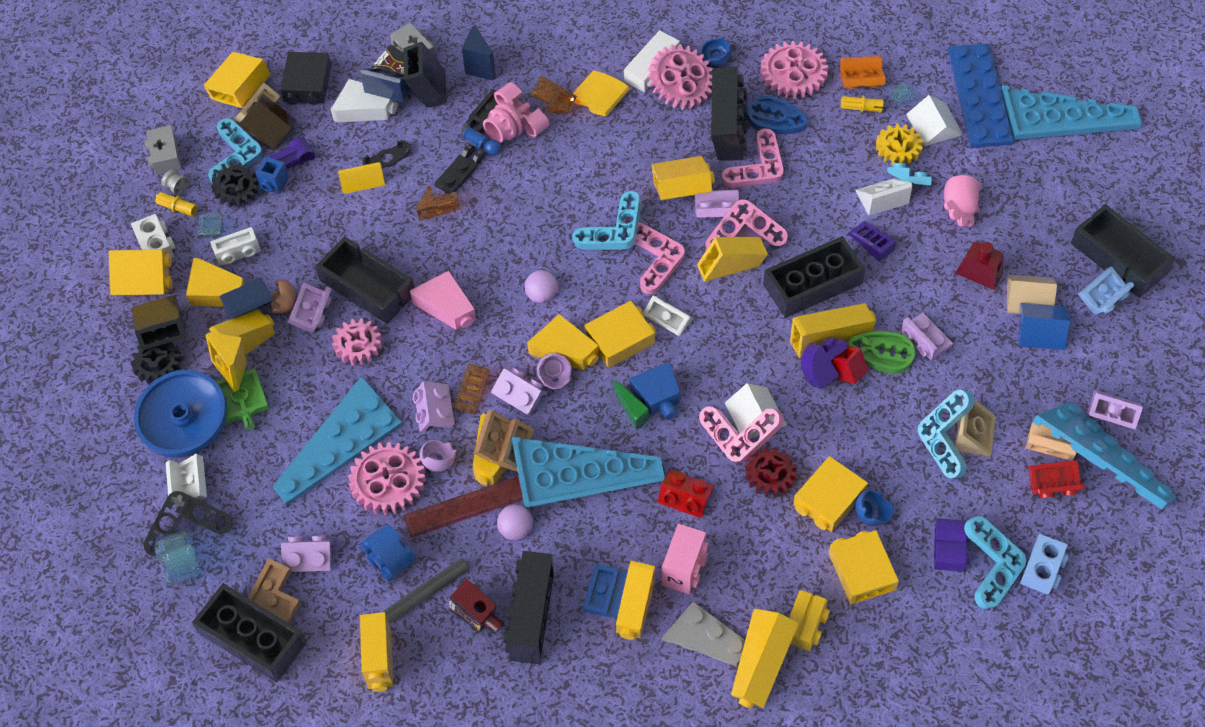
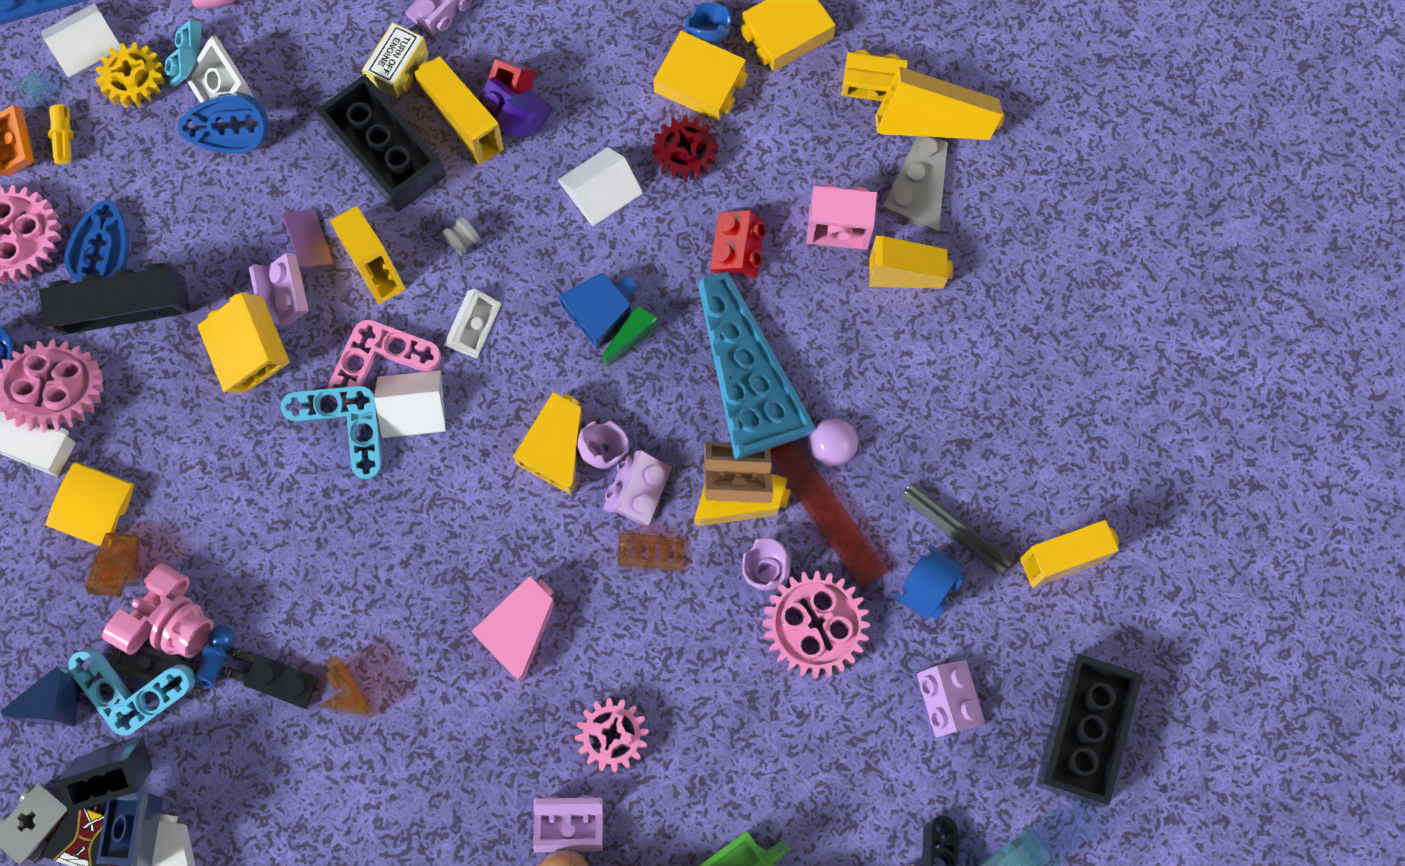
camera: 110 degrees left, 15 degrees up
(268, 591) = (1026, 728): medium nougat plate -> none
(351, 428) = (757, 704): dark azure wing -> none
(361, 178) = (316, 824): yellow slope -> none
(368, 284) = (508, 752): black piece -> none
(398, 152) = (248, 784): black piece -> none
(433, 406) = (689, 596): lavender bracket -> none
(463, 603) = (973, 452): dark red torso -> none
(472, 90) = (123, 700): none -> medium azure beam
(530, 607) = (956, 382): black brick -> none
(541, 286) = (460, 501): lavender hair -> none
(605, 591) = (898, 307): blue plate -> none
(619, 268) = (410, 404): none -> white slope
(621, 333) = (520, 373): yellow brick -> none
(733, 316) = (461, 235): none -> light grey wheel
(735, 439) = (651, 194): bright pink beam -> none
(748, 220) = (303, 243): bright pink beam -> none
(762, 170) = (200, 246): bright pink beam -> none
(852, 181) = (225, 107): none -> blue piece
(877, 252) = (306, 93): dark purple slope -> none
(881, 298) = (396, 60): none -> brick
(889, 341) = (459, 45): bright green piece -> none

